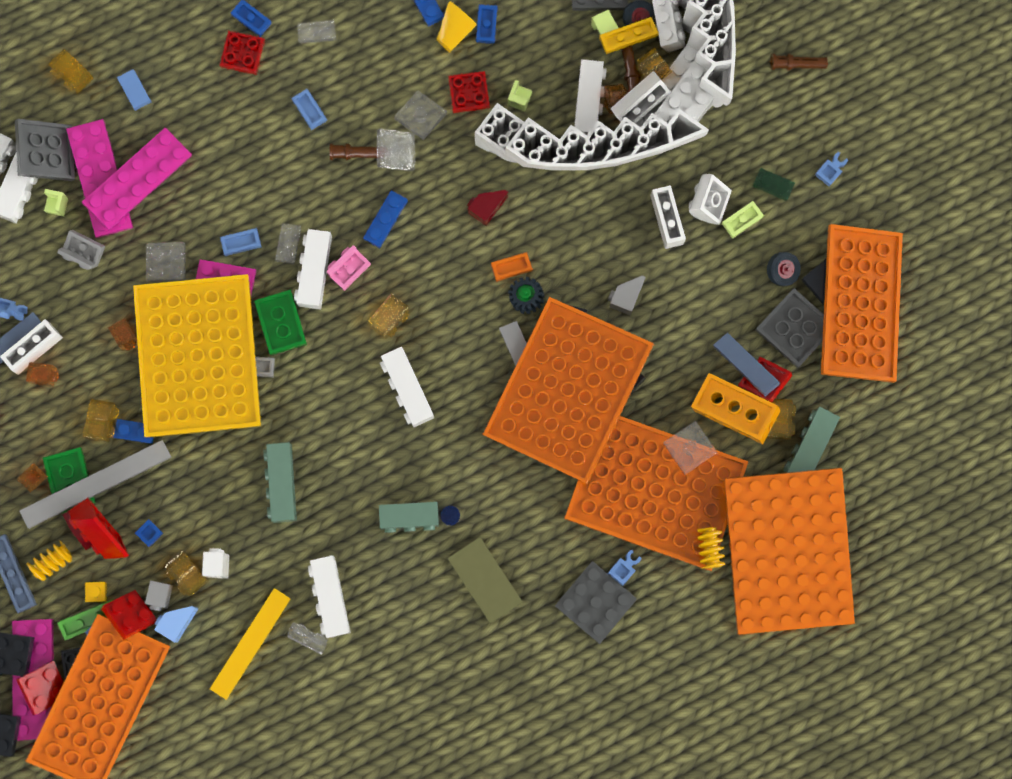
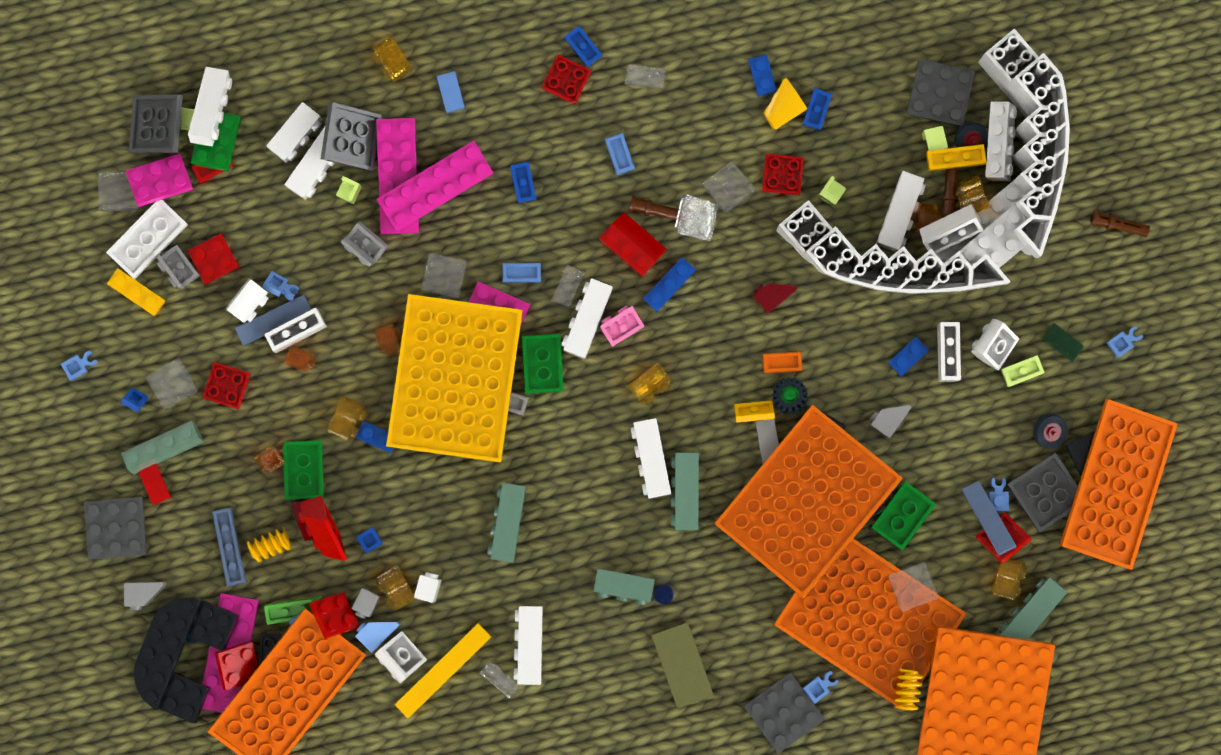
camera: 15 degrees right, 5 degrees up
(95, 484) = (329, 480): light grey tile -> none
(95, 591) = (305, 584): yellow plate -> none
(204, 640) = (400, 657): none -> white brick
(222, 156) = (523, 182): none -> blue plate
(340, 190) = (632, 244): none -> red slope
(448, 410) = (686, 491): none -> sand green brick
(495, 318) = (754, 411): none -> yellow plate
(630, 232) = (908, 356): none -> blue plate
(664, 383) = (903, 515): none -> green plate
(735, 396) = (967, 546): light orange brick -> none
(750, 343) = (999, 498): none -> medium blue plate

